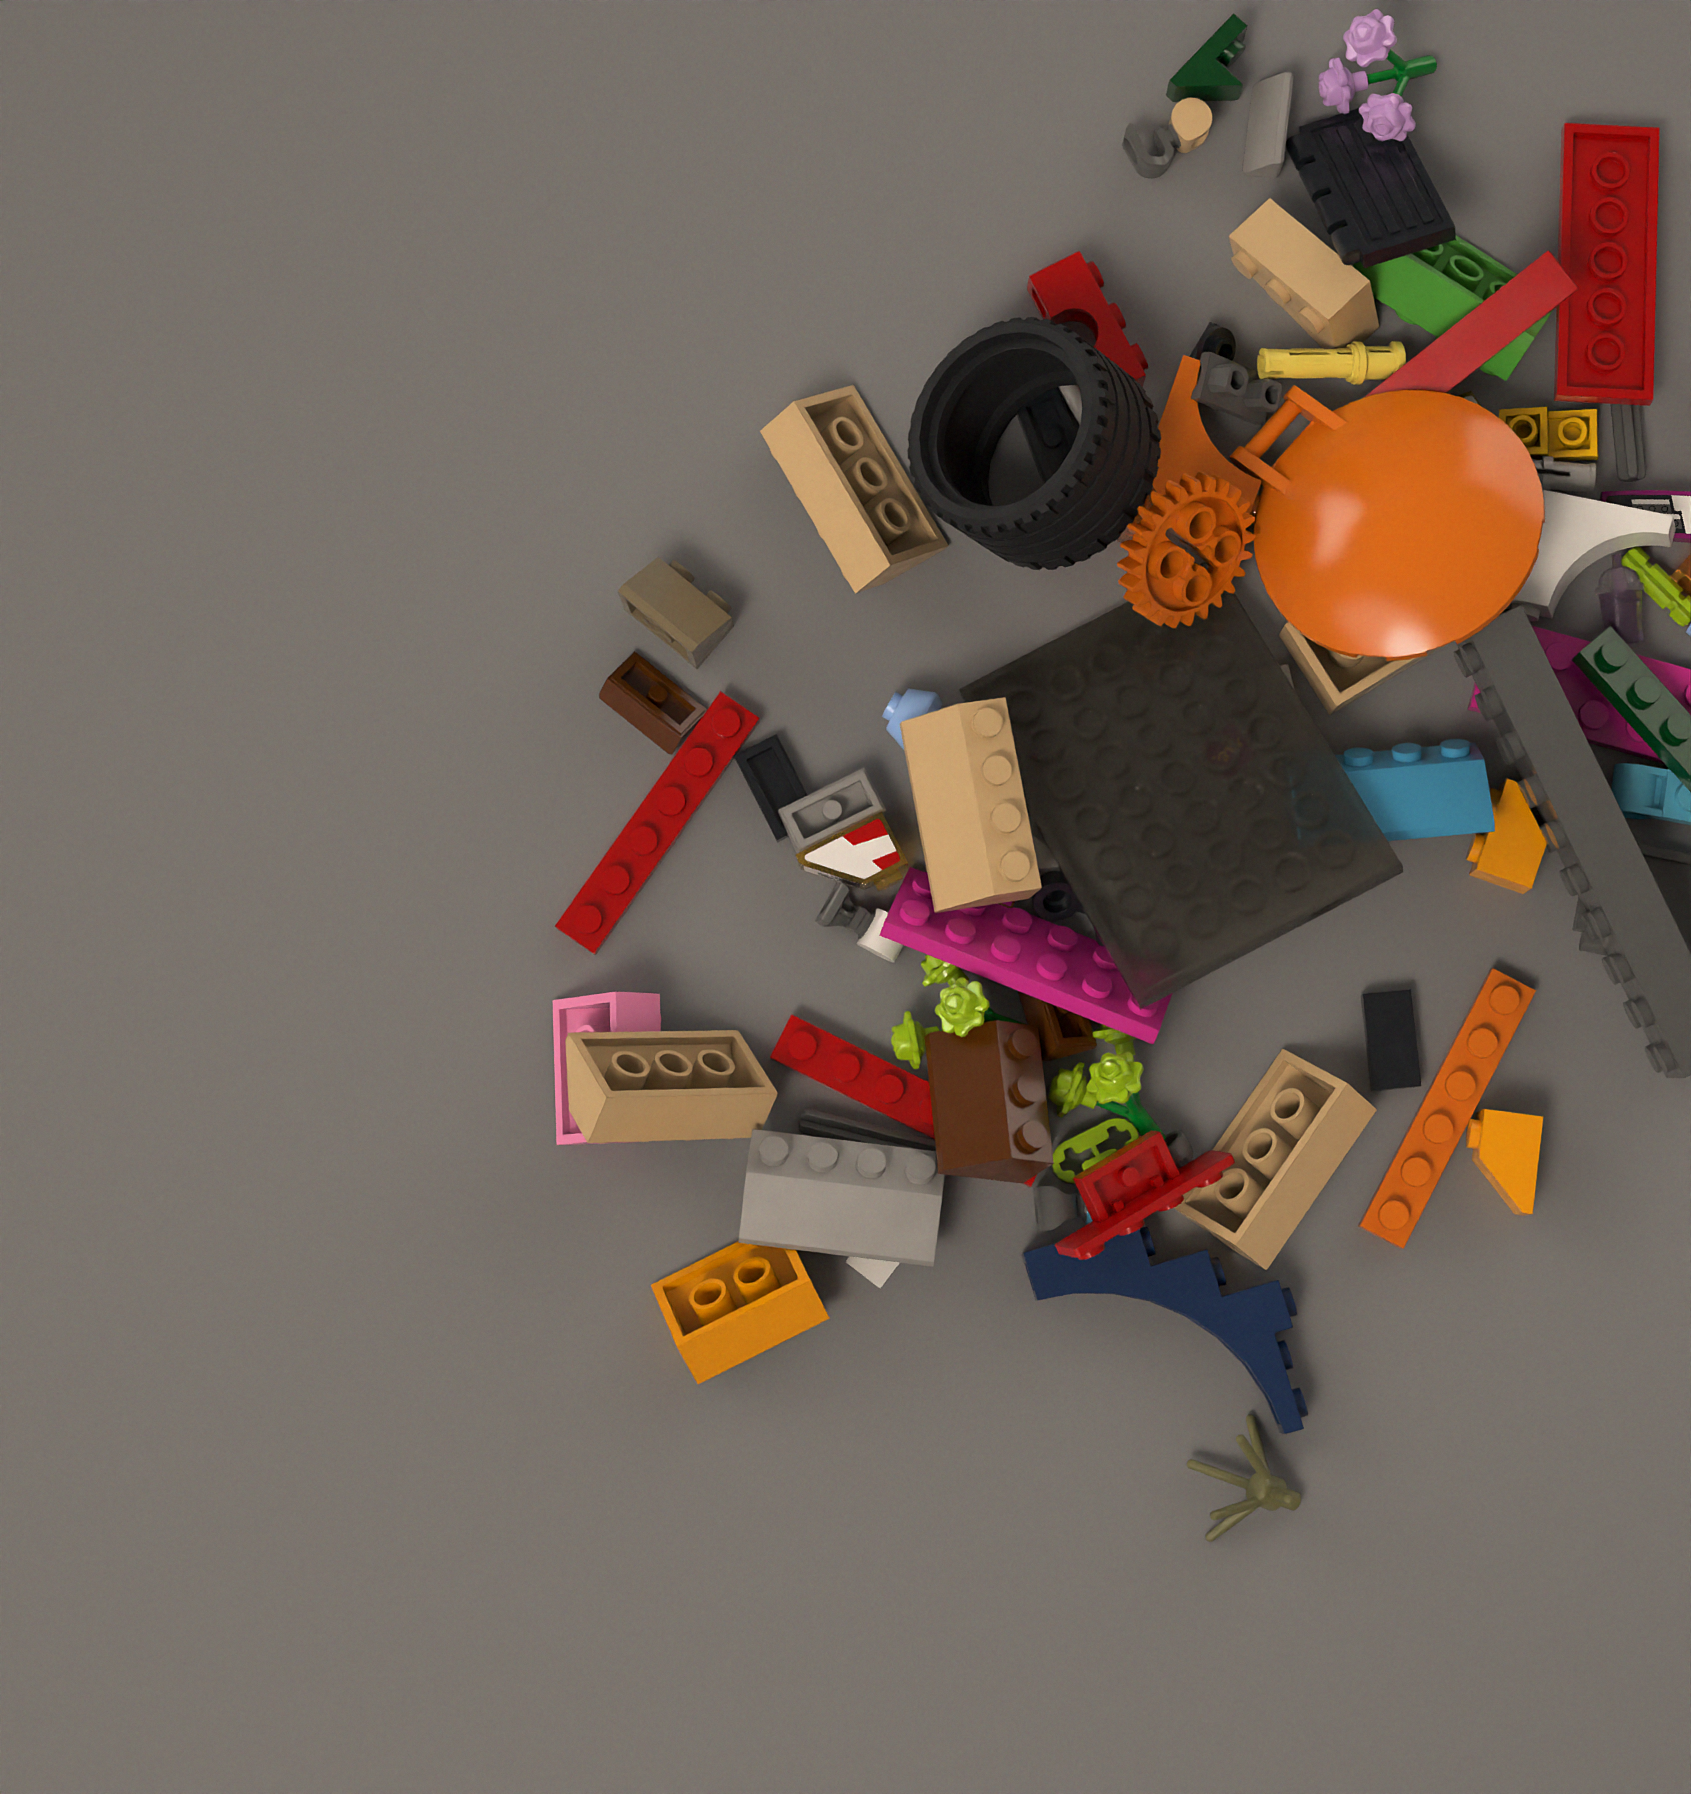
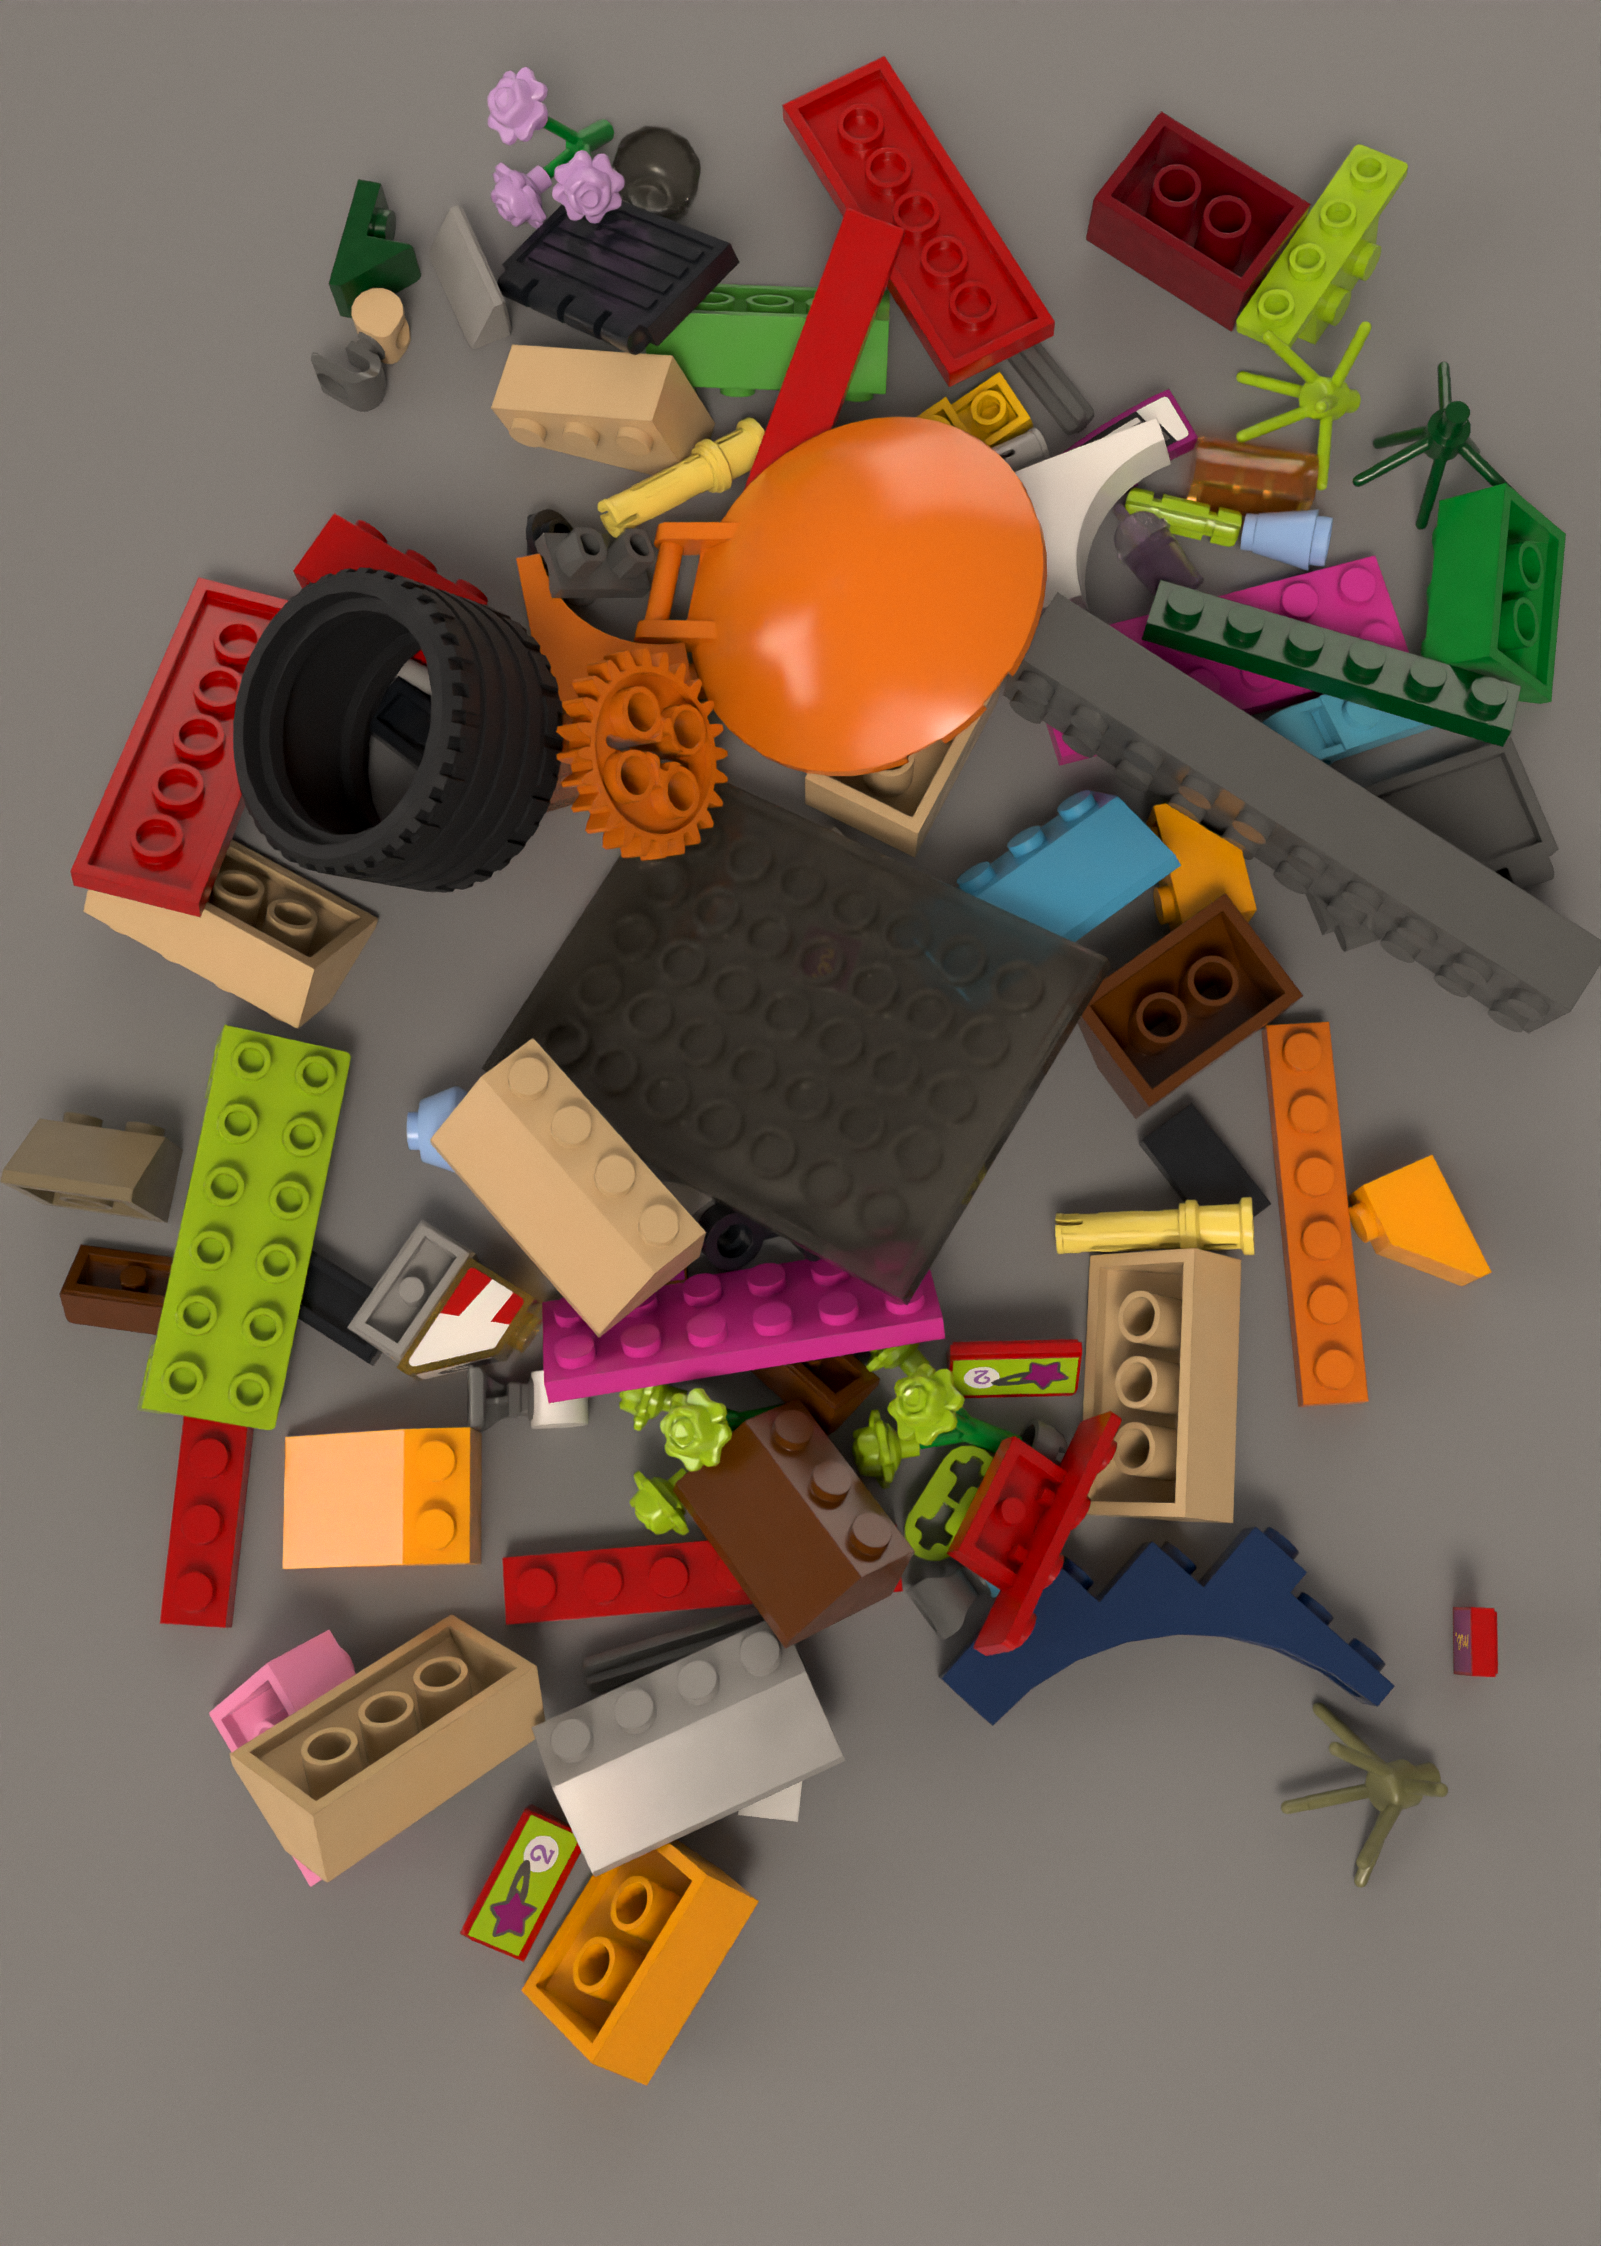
camera: 35 degrees left, 5 degrees down
(690, 1222) = (523, 1884): none -> slope
(736, 931) = (383, 1499): none -> light orange slope
(749, 706) = (246, 1230): none -> lime bracket
(877, 377) = (176, 780): none -> red plate
(1187, 1091) = (1015, 1368): none -> slope
(1352, 1067) = (1182, 1228): none -> light yellow pin
(1374, 1435) = (1475, 1641): none -> red tile
(1442, 923) = (1184, 1005): none -> reddish brown slope
(1444, 126) = (658, 171): none -> clear smoke hair

